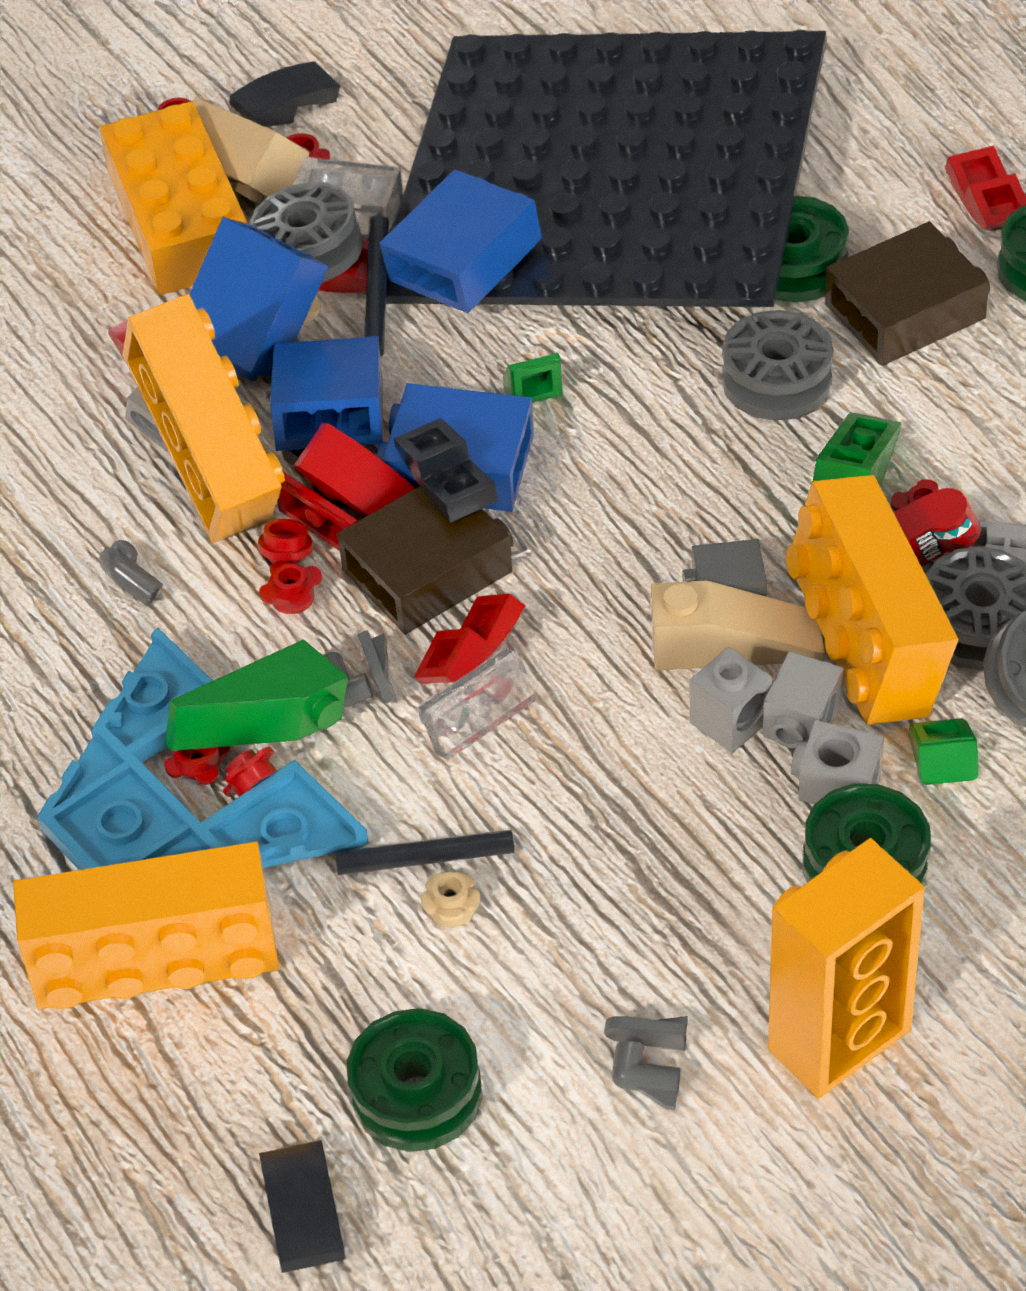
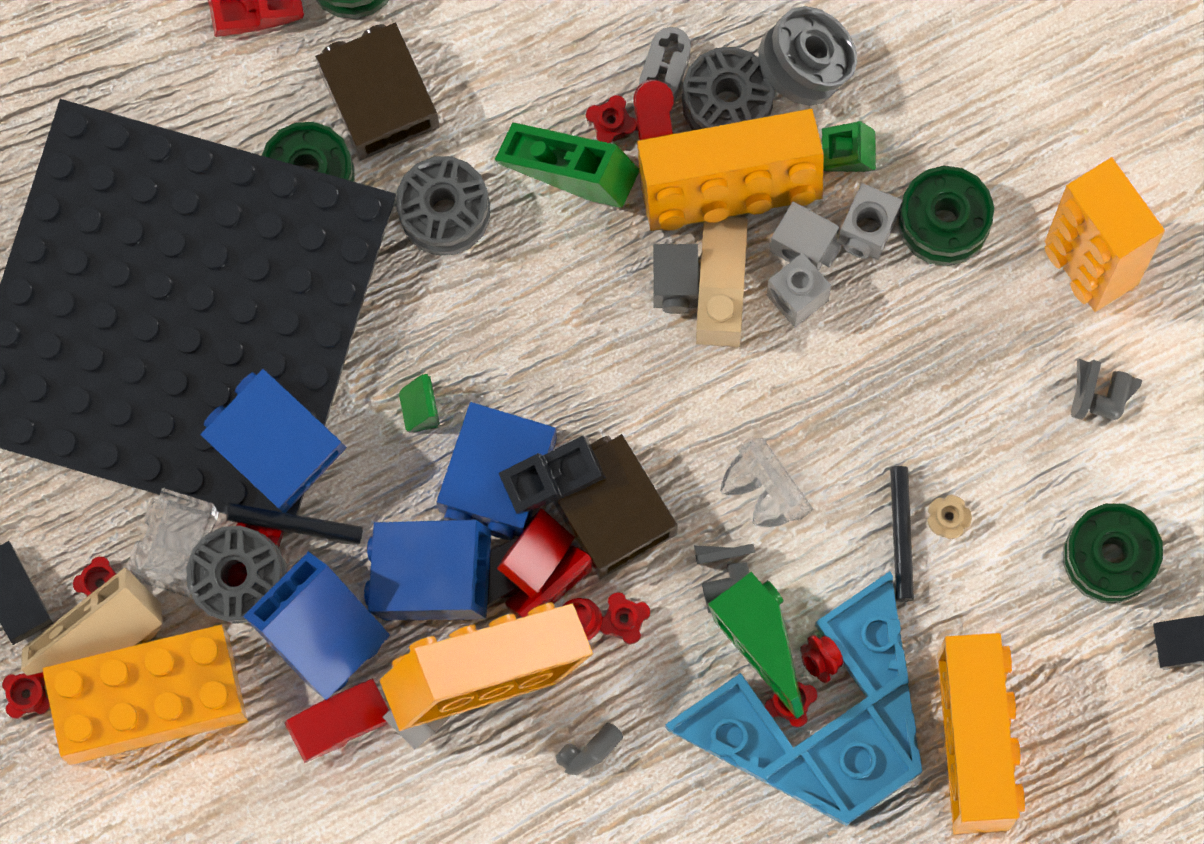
camera: 85 degrees left, 25 degrees up
(462, 650) = (716, 482): red slope -> none

